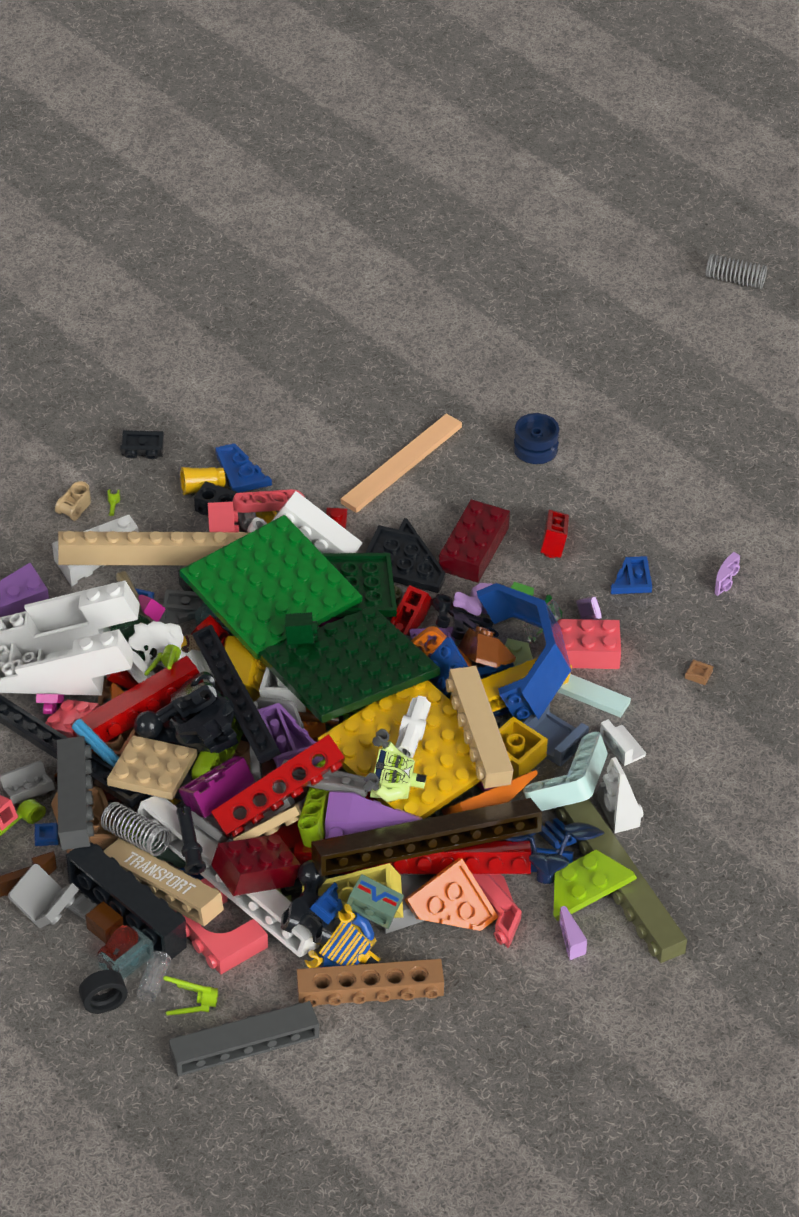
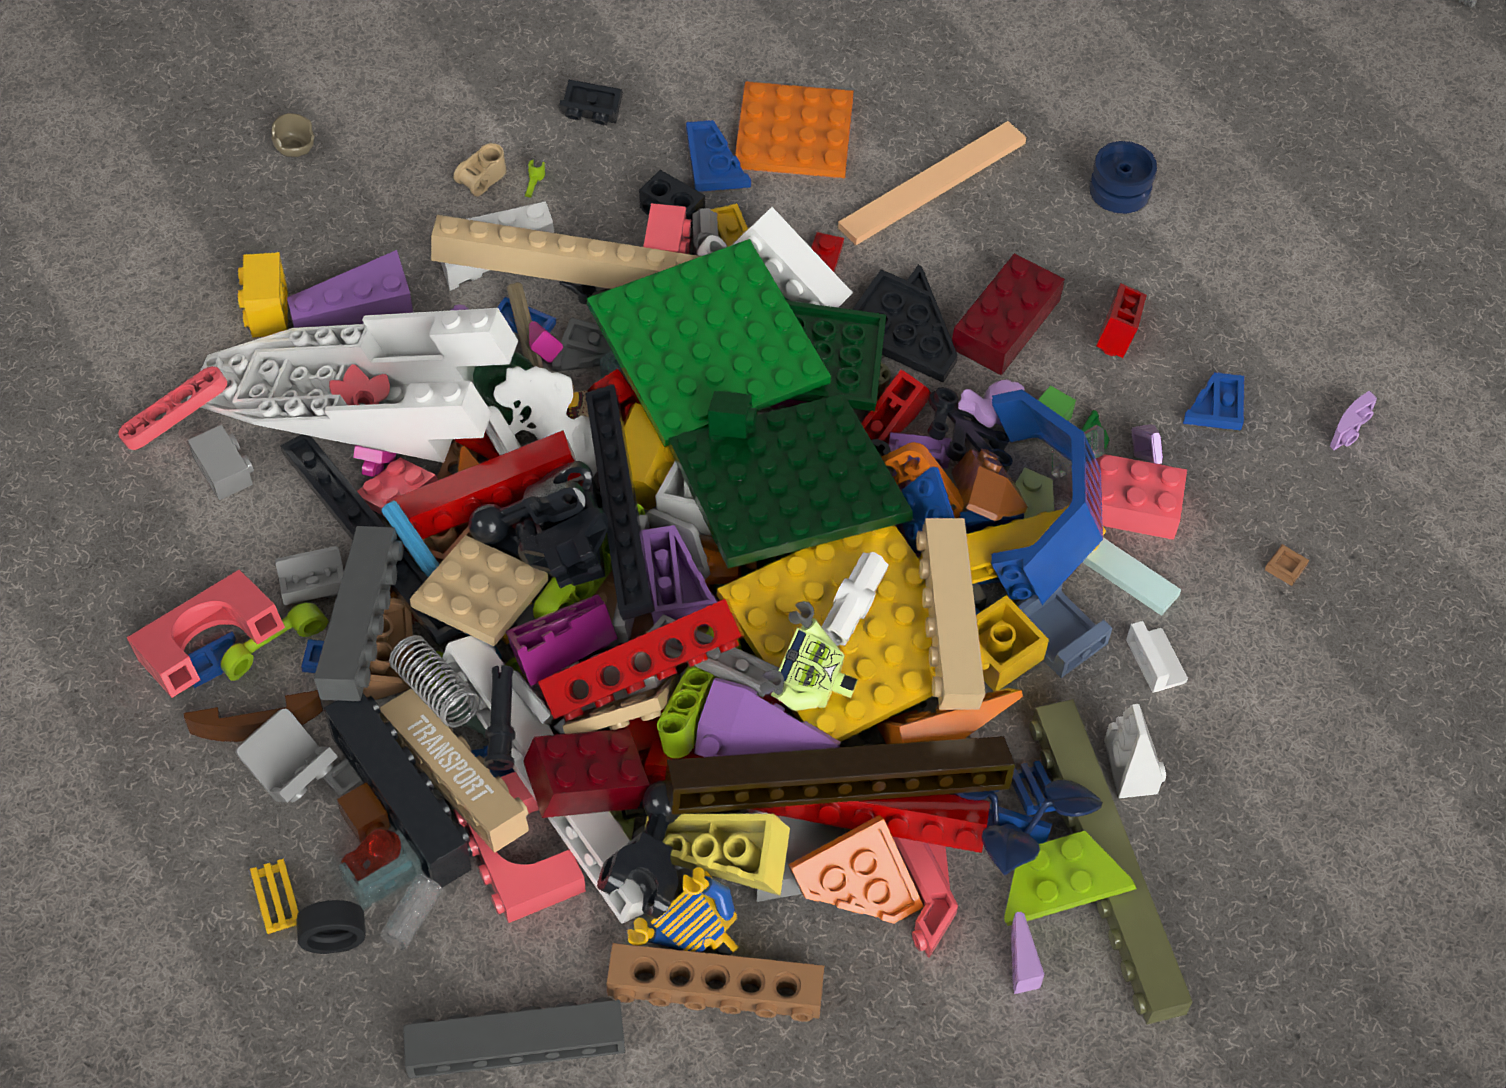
camera: 10 degrees right, 10 degrees up
(29, 655) = (359, 388): none -> coral plate
(49, 970) = (269, 871): none -> yellow tile
(169, 573) = (581, 290): none -> black hand
(169, 656) = (542, 425): lime plant -> none
(194, 478) = (648, 161): yellow plant -> none
(206, 996) = (477, 956): lime plant -> none
(247, 503) = (706, 210): coral beam -> none
(294, 441) = (794, 129): none -> orange plate
(328, 904) = (673, 859): blue tile -> none
(375, 901) = (740, 869): sand green panel -> none
(579, 782) = (1084, 716): light aqua beam -> none

